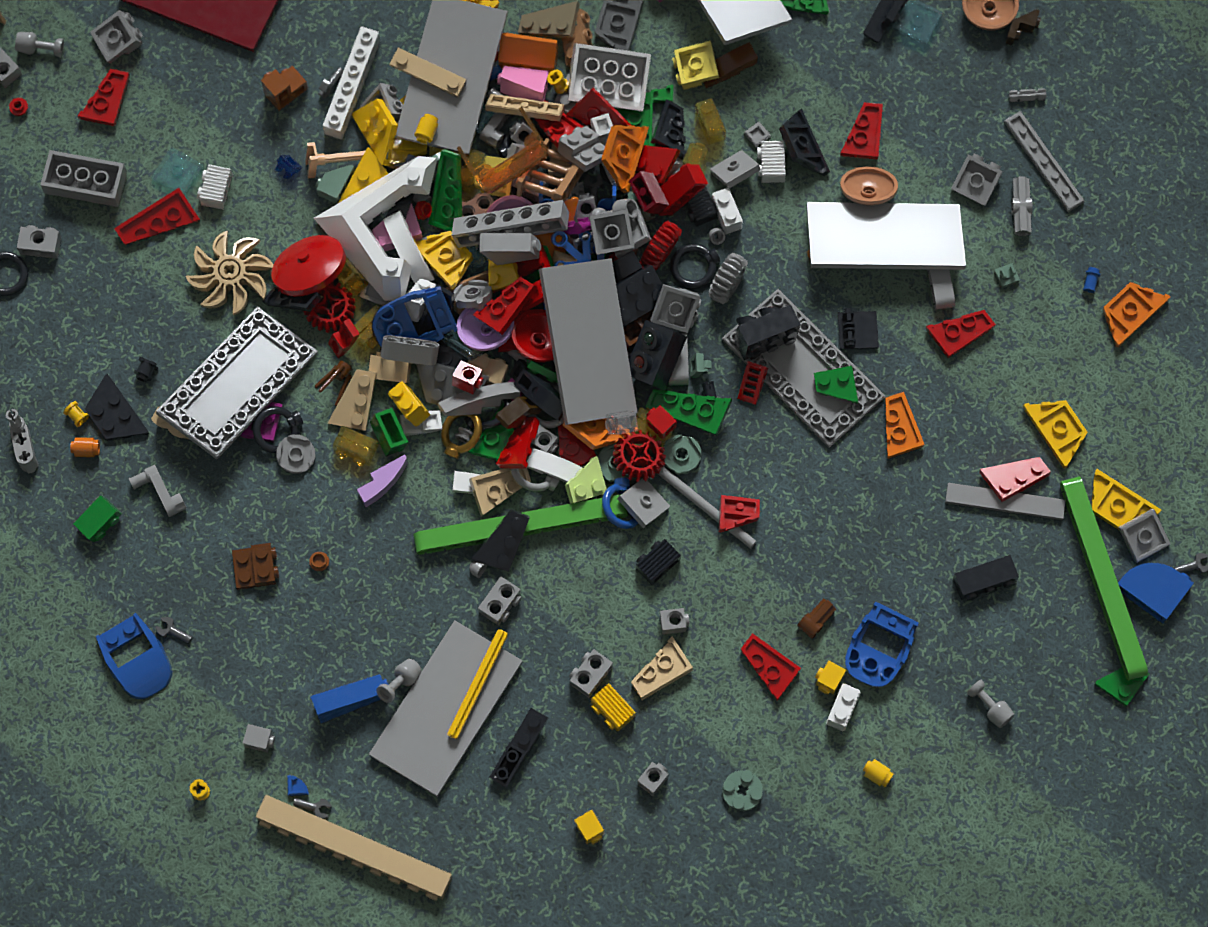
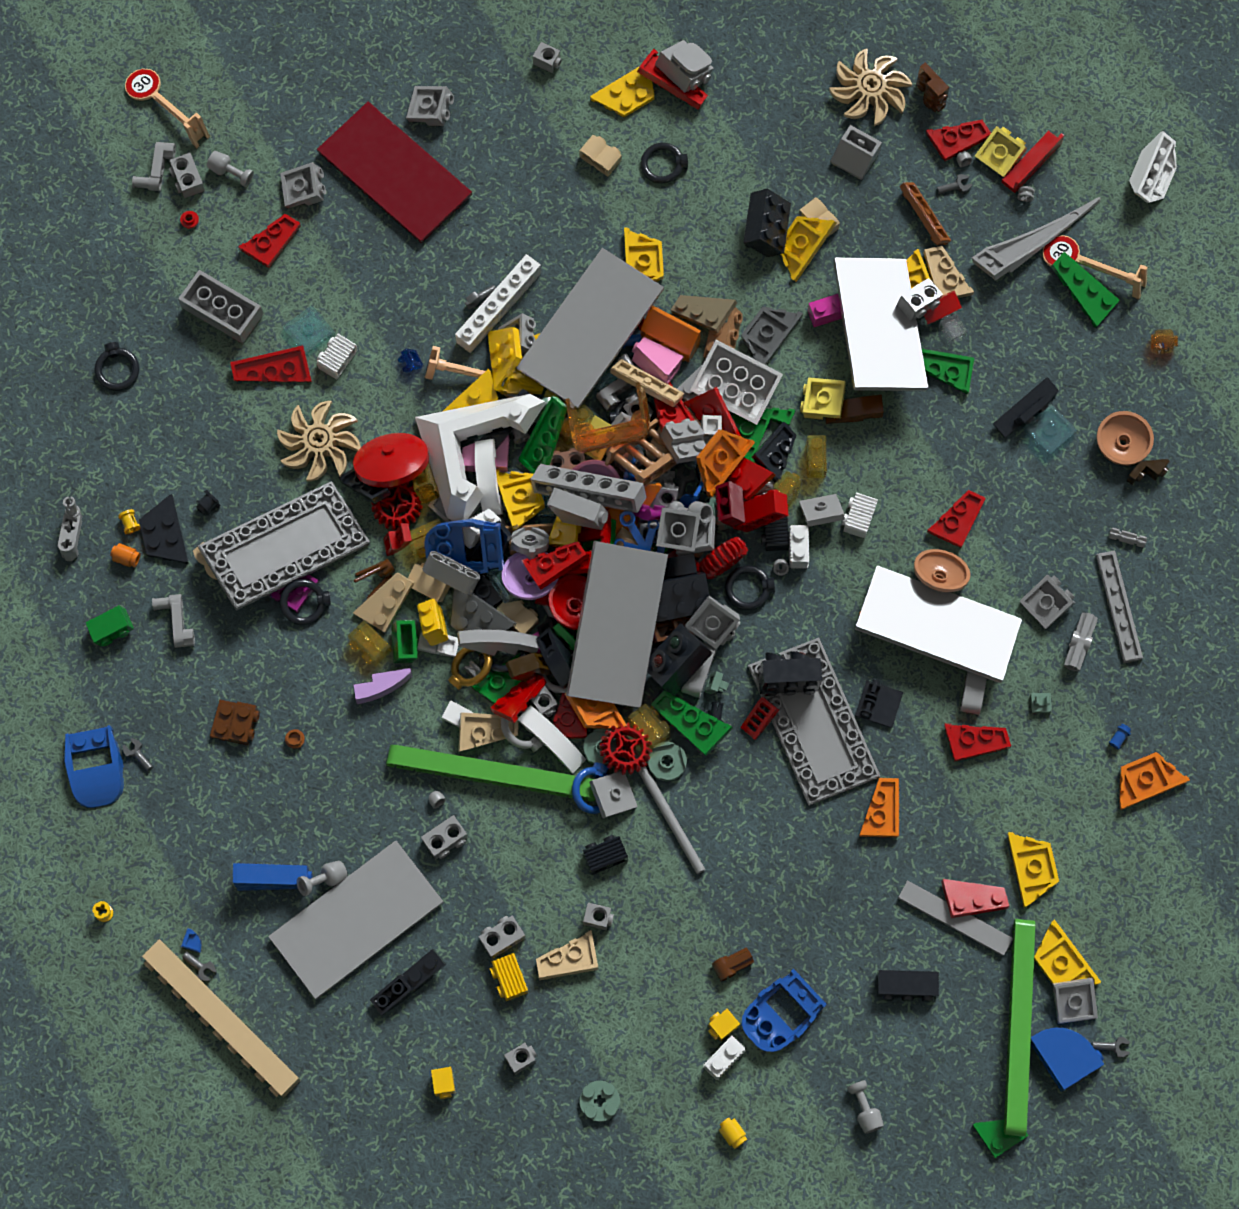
camera: 20 degrees right, 0 degrees up
(48, 248) = (166, 358): light grey brick -> none
(258, 738) = (174, 883): light grey brick -> none
(283, 86) = (434, 286): dark orange brick -> none
(295, 454) = (312, 631): light grey tile -> none
(334, 183) = (446, 391): sand green slope -> none
(423, 210) = (516, 445): red plate -> none
(426, 128) = (546, 371): yellow brick -> none
(428, 72) = (568, 319): tan plate -> none
(466, 370) = (493, 610): brick -> none
(477, 684) = (392, 908): yellow axle -> none
(503, 542) = (467, 785): black wing -> none
(556, 79) = (689, 369): yellow bush -> none
(587, 482) = (567, 756): yellowish green wing -> none
(621, 422) = (620, 711): clear brick -> none
(660, 421) = (657, 724): red brick -> none
(728, 278) = (774, 611): light grey gear -> none
(737, 512) = (697, 835): red wing -> none
(757, 134) = (856, 484): light grey tile -> none
(770, 665) = (672, 992): red wing -> none
(802, 144) = (895, 508): black wing -> none
(837, 383) = (839, 748): green wing -> none

